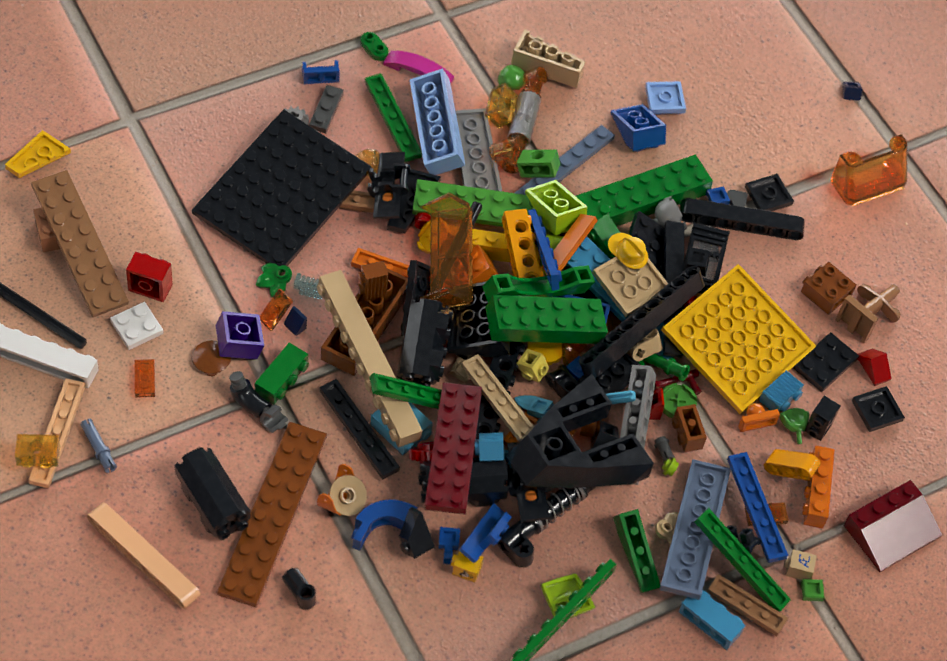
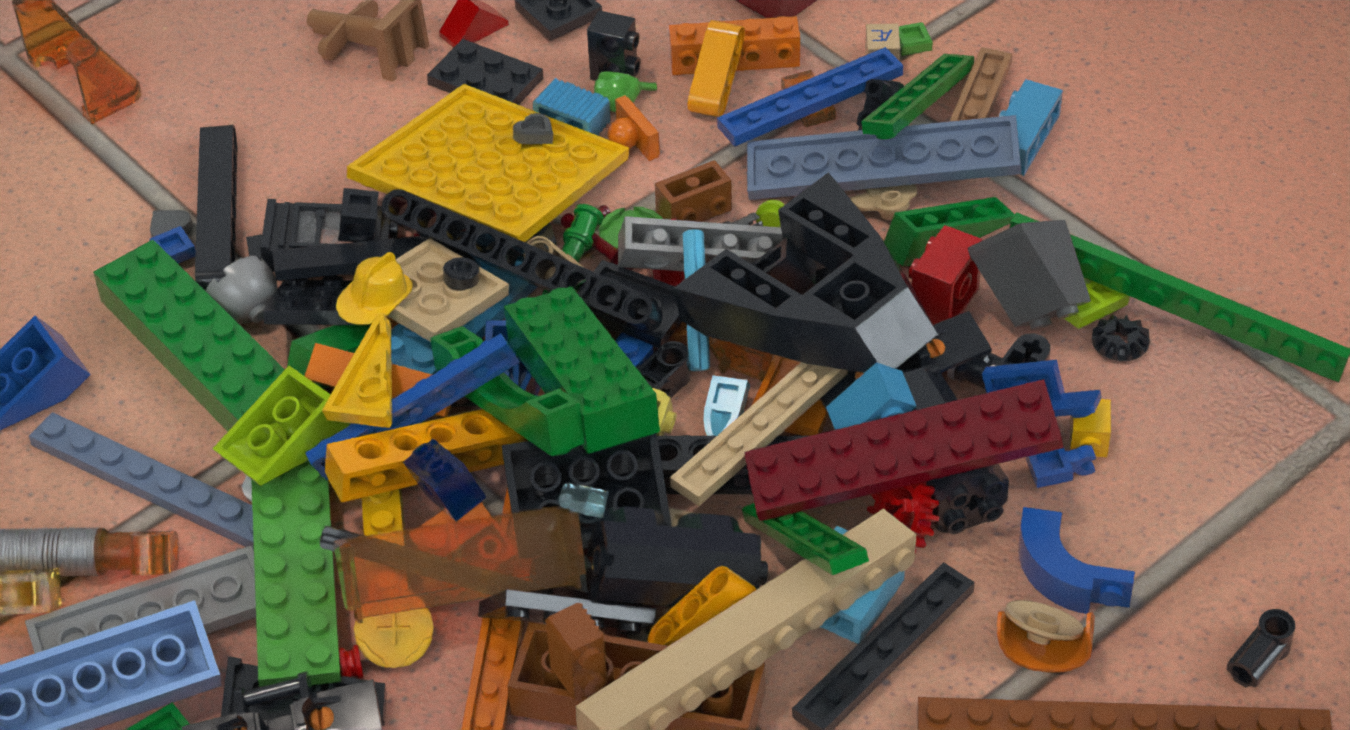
camera: 95 degrees left, 10 degrees down
(392, 347) = (706, 600): none -> light orange beam
(415, 534) = (1079, 498): black slope -> none
(463, 300) = (583, 499): none -> clear light blue piece
(493, 252) = (444, 479): none -> clear blue brick
(524, 615) = (1113, 346): none -> black gear
(538, 163) = (162, 474): bright green brick -> none
(556, 227) = (366, 385): none -> yellow wing
(571, 558) = (1033, 272): none -> dark grey slope
(588, 525) = (946, 274): none -> red brick
(635, 291) = (461, 273): none -> black tile
(760, 364) = (533, 130): none -> dark grey tile
(769, 193) = (148, 184): black plate -> none
(827, 287) = (338, 86): dark orange brick -> none

